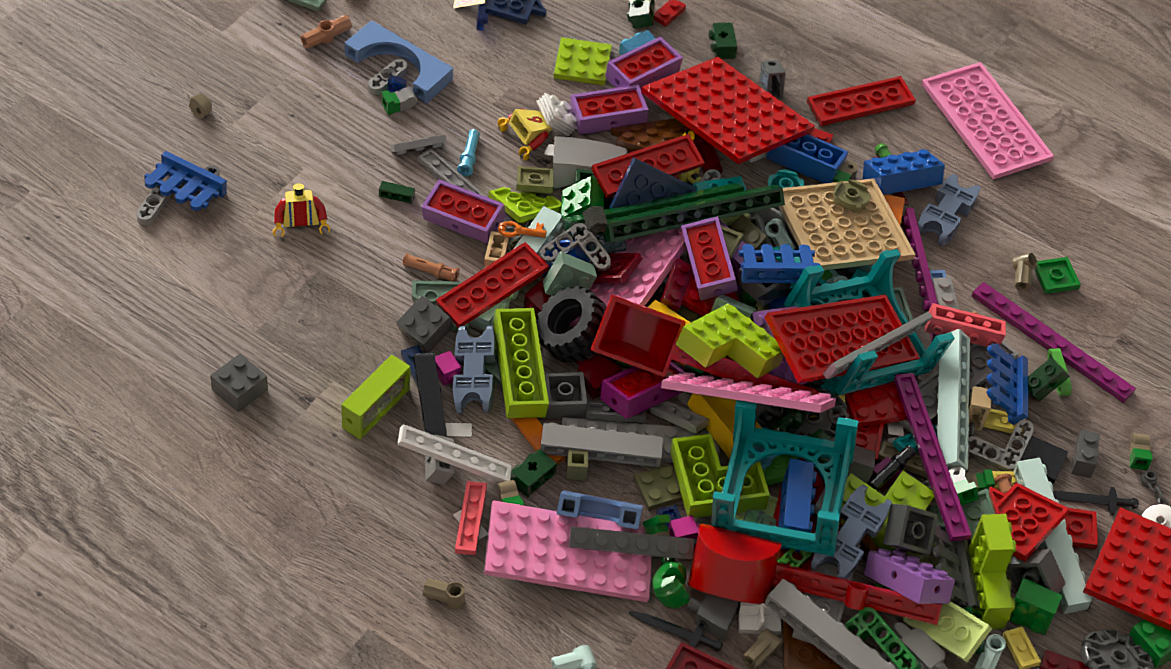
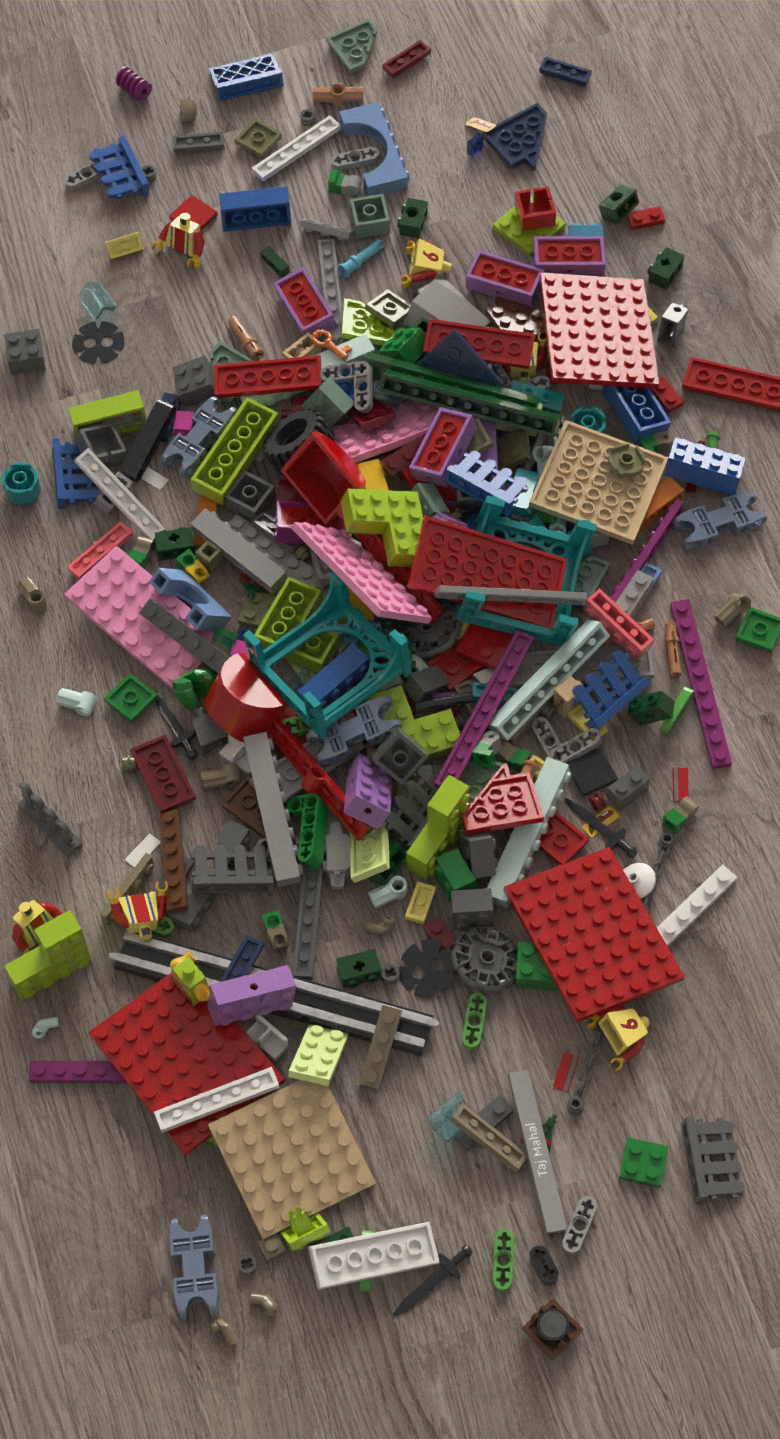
camera: 45 degrees right, 10 degrees up
(129, 107) = (133, 84): none -> magenta piece
(234, 60) = (247, 83): none -> blue fence
(235, 127) = (198, 142): none -> dark grey plate
(247, 244) = (124, 245): none -> light yellow plate
(262, 305) = (96, 299): none -> clear light blue panel
(280, 184) = (198, 211): none -> red tile
(287, 99) = (258, 138): none -> olive plate
(299, 353) = (91, 331): none -> black piece
(314, 62) = (305, 120): none -> dark grey bush
(329, 92) = (296, 148): none -> white plate
(344, 155) = (255, 209): none -> blue brick
(345, 499) = (21, 483): none -> teal brick
(372, 470) = (70, 480): none -> blue fence
(387, 420) = (103, 442): none -> dark grey piece
(396, 83) = (352, 168): clear blue plate -> none
(449, 114) = (370, 216): none -> sand green brick
(484, 99) = (413, 218): none -> dark green brick
(557, 114) = (455, 260): white brick -> none
(567, 481) = (192, 566): none -> leg
(581, 41) = (539, 213): none -> red piece
(595, 219) = (379, 365): clear smoke piece -> none
(619, 629) = (131, 698): none -> green plate
(637, 470) = (249, 587): none -> dark green piece
(651, 418) = (302, 553): none -> olive plate
(1012, 329) = (673, 650): none -> nougat pin
(1071, 624) = (471, 908): none -> dark grey piece
(1072, 479) = (597, 802): none -> dark red bush
(1087, 487) = (607, 816): none -> yellow sticker
(1113, 428) = (680, 783): none -> red sticker

